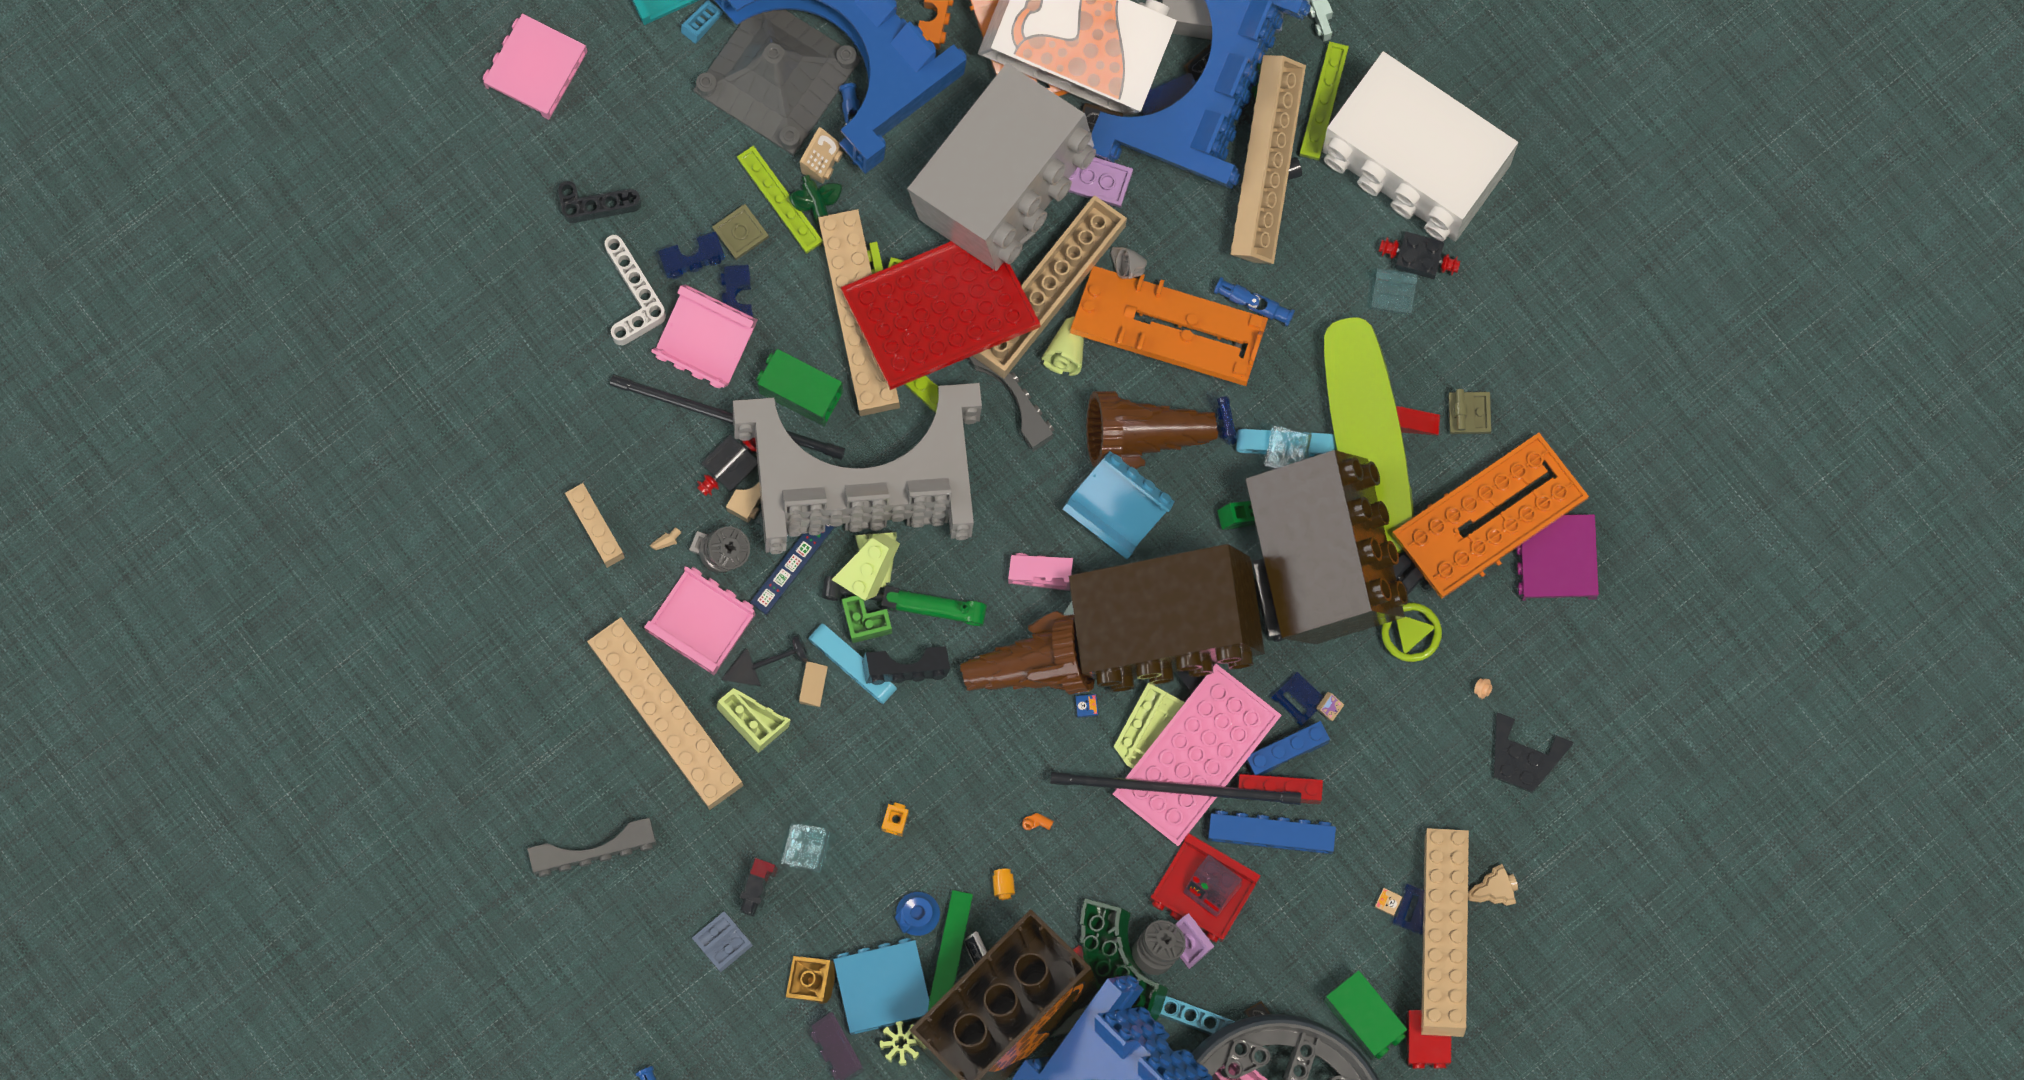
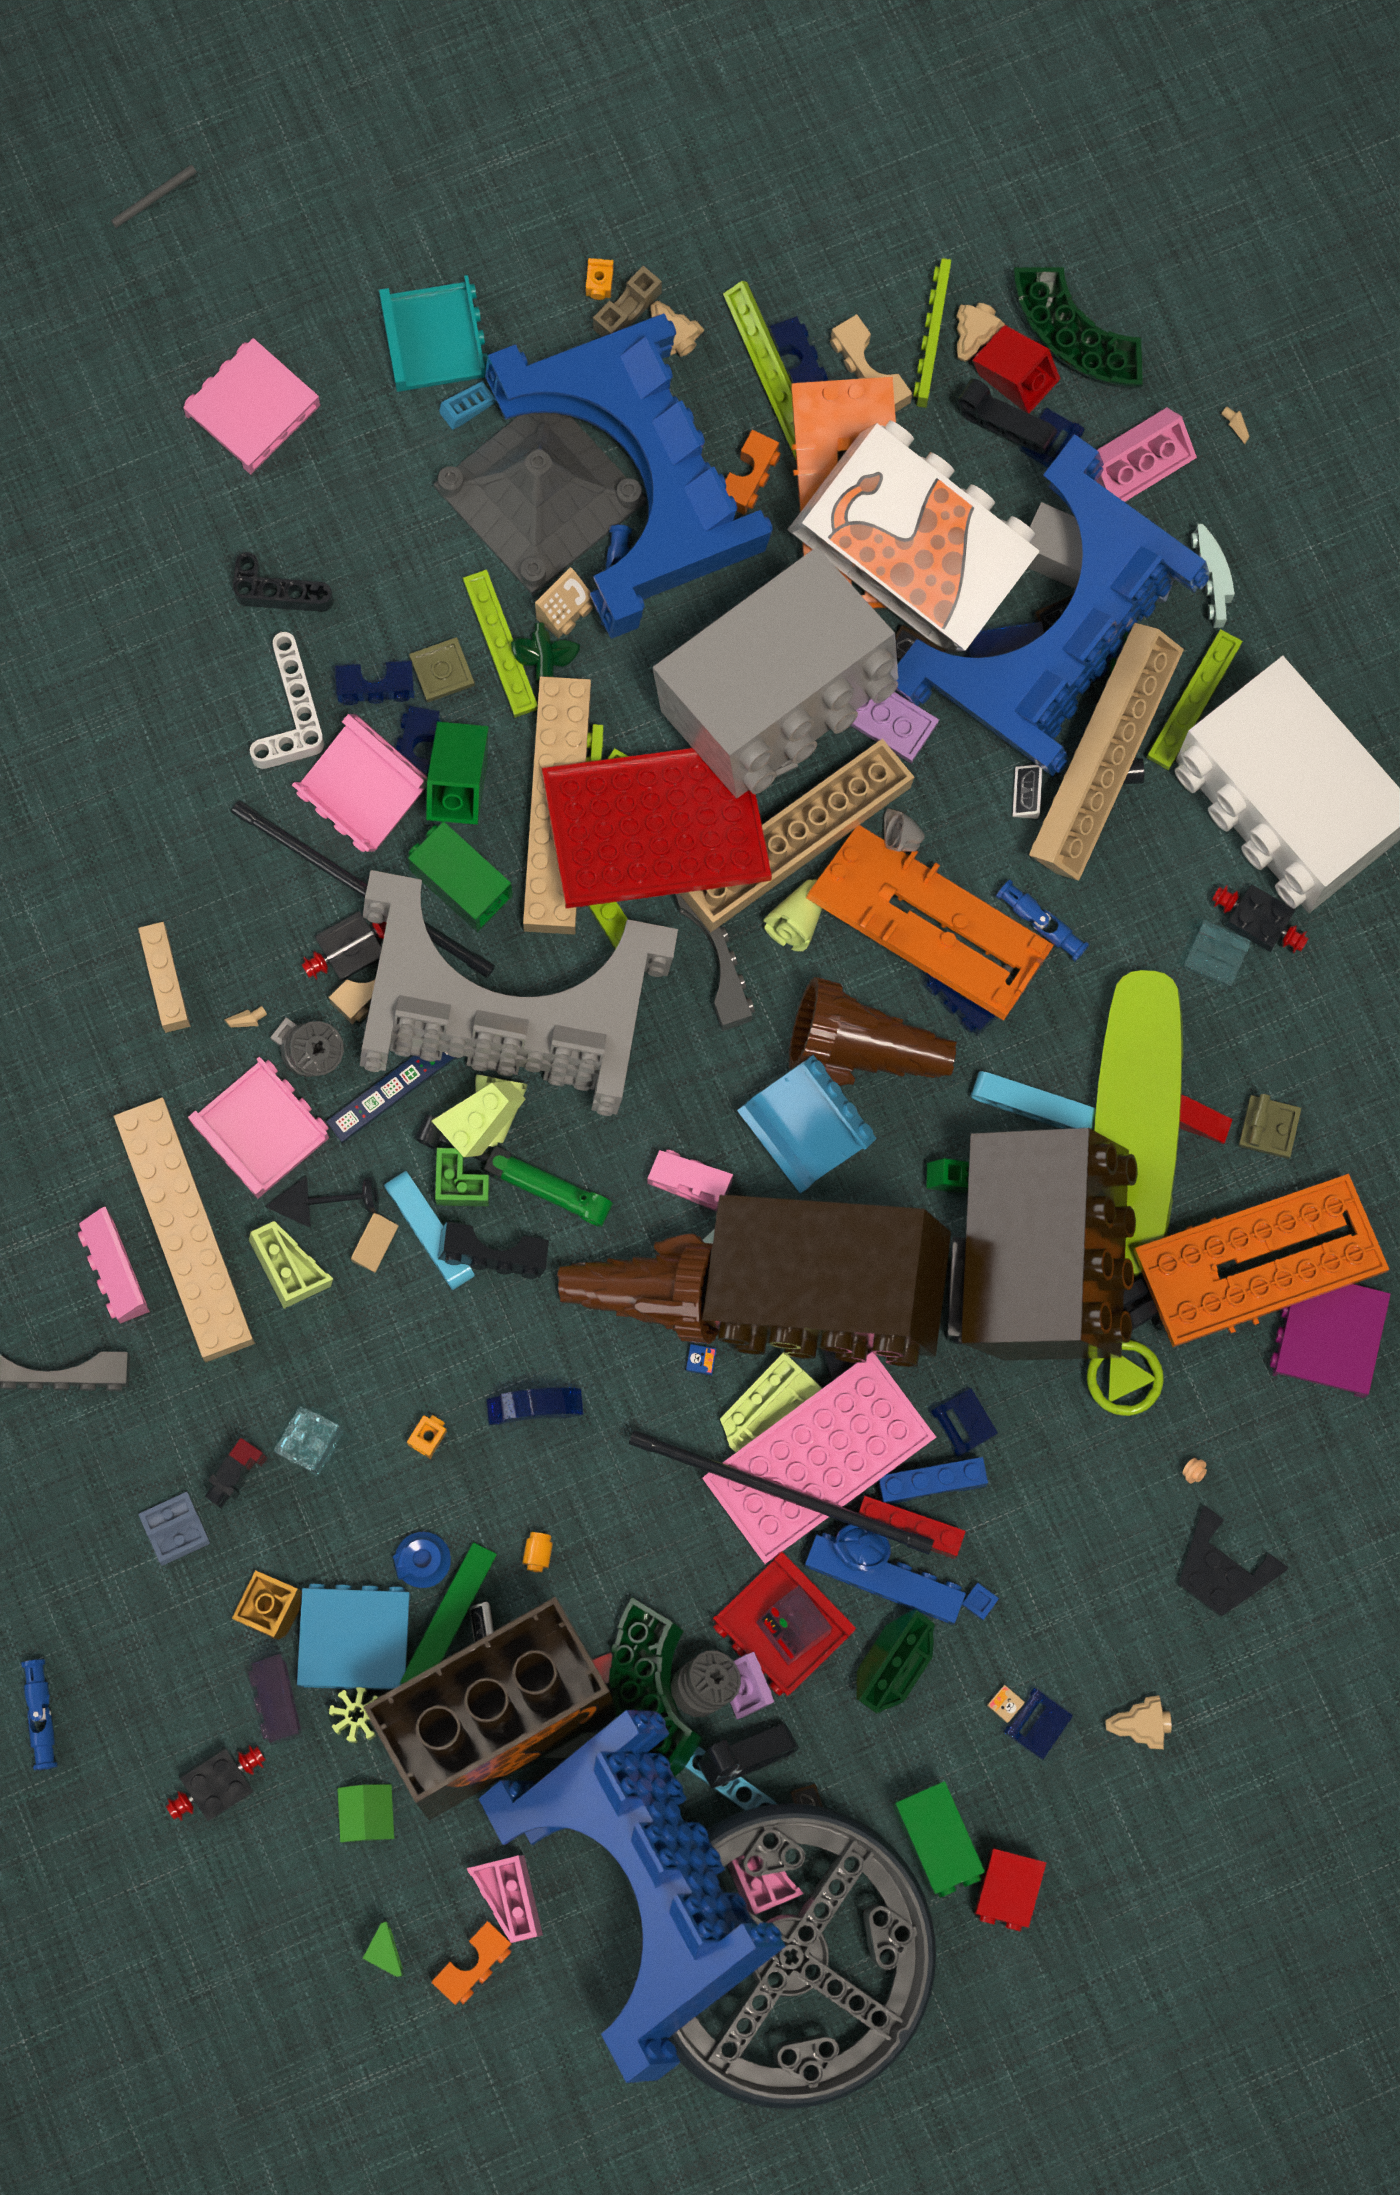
camera: 10 degrees right, 0 degrees up
(619, 755) = (113, 1266): none -> bright pink slope
(776, 308) = (457, 773): none -> green brick
(969, 773) = (535, 1404): none -> clear blue arch
(1037, 820) = (600, 1483): orange arm -> none
(1192, 1001) = (726, 1763): none -> black beam
(1212, 384) = (973, 1016): none -> clear blue arch
(1215, 206) = (1027, 791): none -> slope
(1224, 413) = (968, 1046): clear blue plate -> none
(1248, 814) = (861, 1548): none -> blue piece
(1287, 447) = (1033, 1108): clear light blue plate -> none
(1297, 892) = (895, 1662): none -> dark green wedge
(1330, 706) = (999, 1442): tan tile -> none
(1348, 830) = (980, 1601): none -> blue plate
(1445, 932) = (1064, 1764): tan brick -> none

